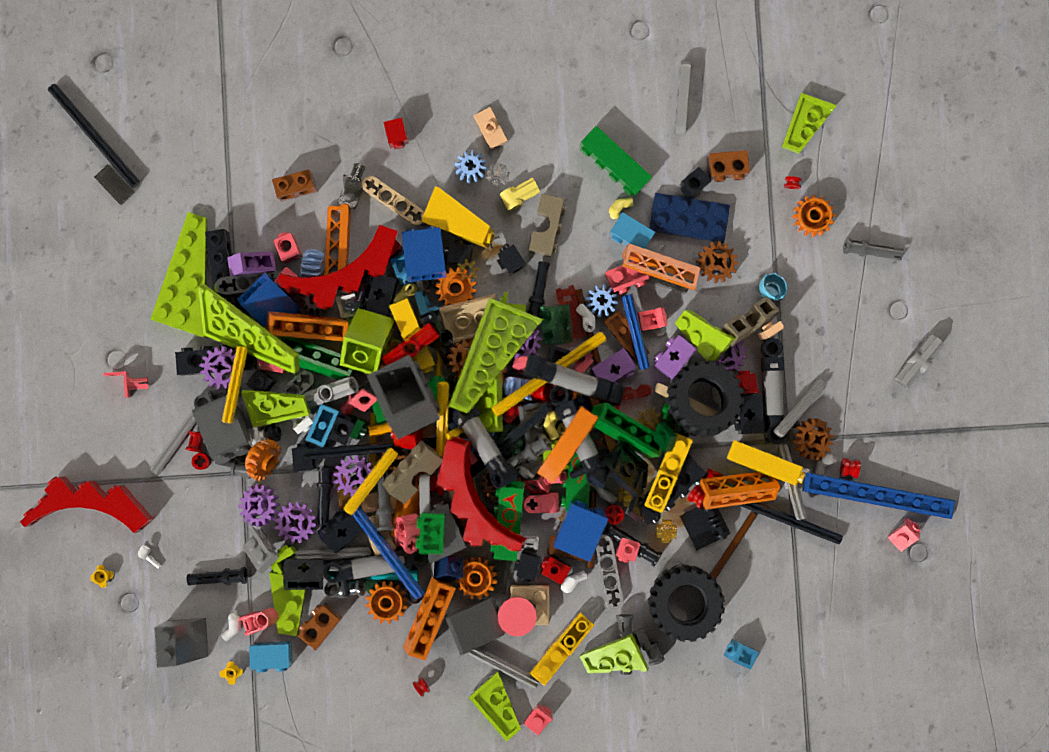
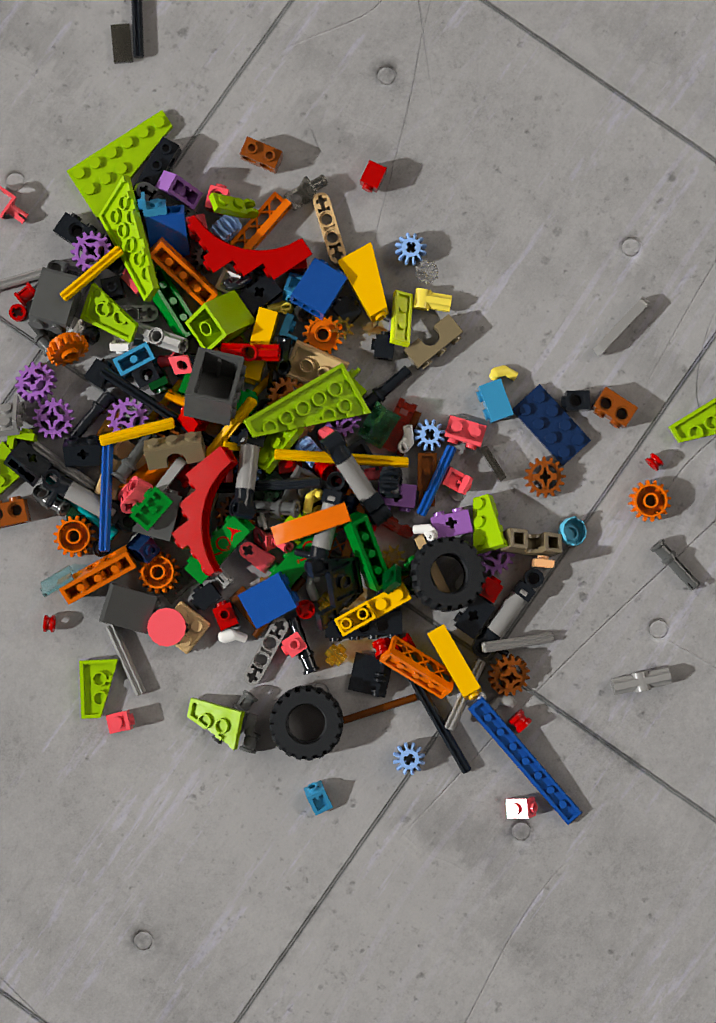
camera: 40 degrees right, 0 degrees up
(243, 293) = (153, 207): none -> dark azure bracket
(305, 242) = (233, 206): none -> lime hinge
(400, 649) = (57, 581): none -> clear light blue piece
(490, 128) = (450, 231): light nougat plate -> none
(507, 226) = (401, 318): none -> neon yellow tile
(561, 648) = (181, 681): yellow slope -> none
(603, 361) = (390, 482): none -> black gear
(615, 161) = (527, 333): green brick -> none
(660, 376) = (426, 529): none -> white arm
(661, 263) = (499, 443): orange fence -> none
(793, 569) = (412, 764): none -> light blue gear

